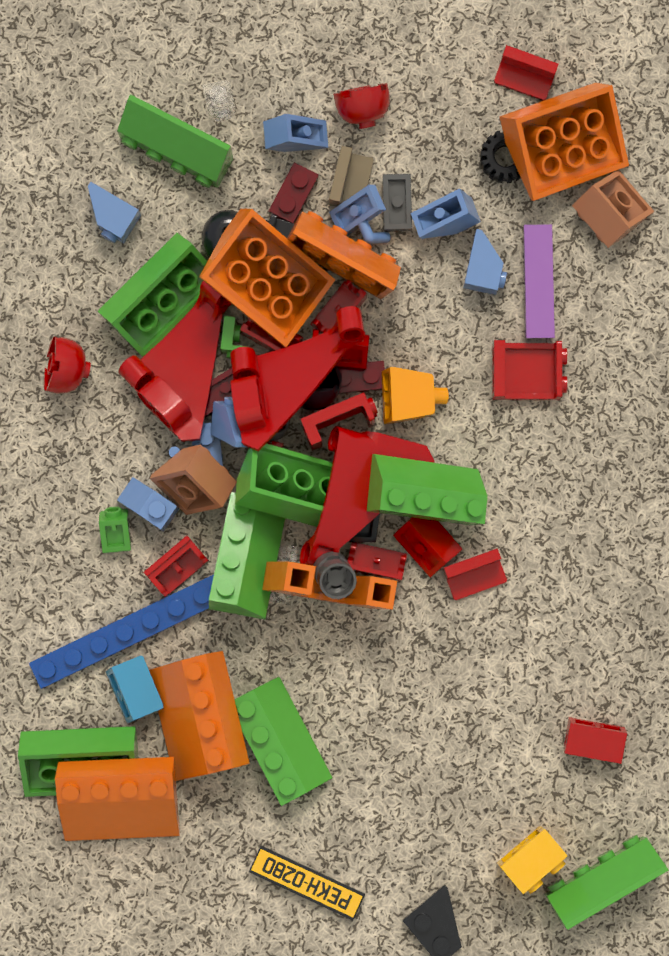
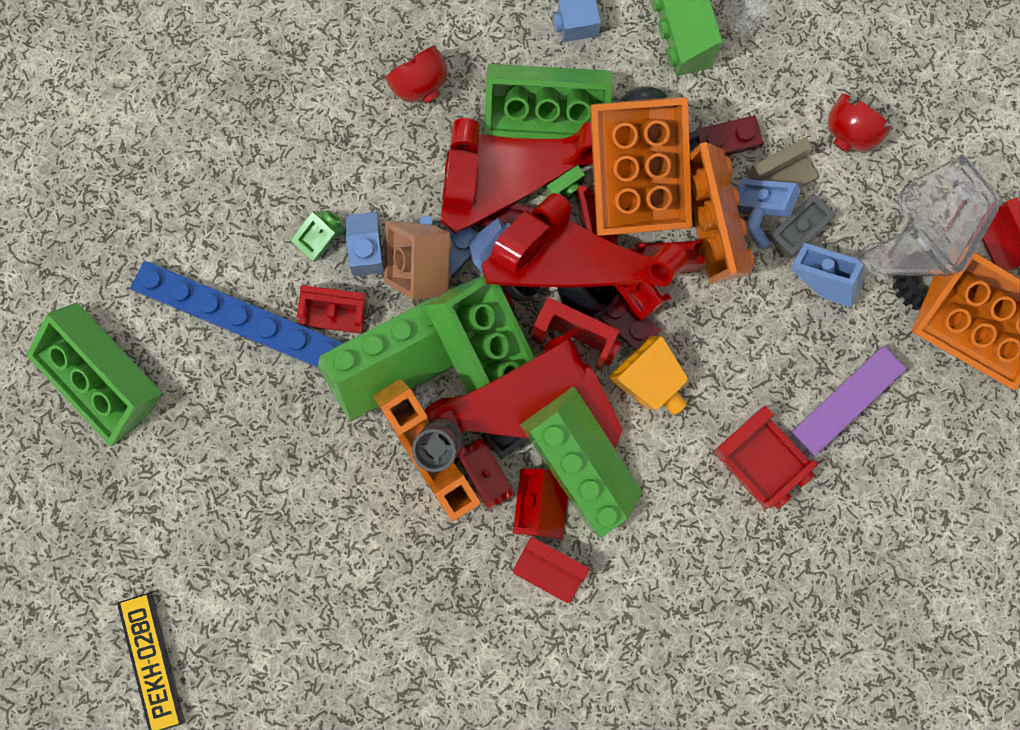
camera: 40 degrees right, 5 degrees down
(117, 798) = (83, 430): orange slope -> none
(134, 689) = (196, 365): dark azure panel -> none
(200, 716) = (216, 440): orange slope -> none
(281, 741) = (255, 528): bright green slope -> none
(295, 133) = (779, 94): medium blue slope -> none
(481, 107) = (945, 225): none -> clear windscreen
(484, 267) = (817, 344): medium blue slope -> none
(612, 208) = (967, 407): nougat slope -> none

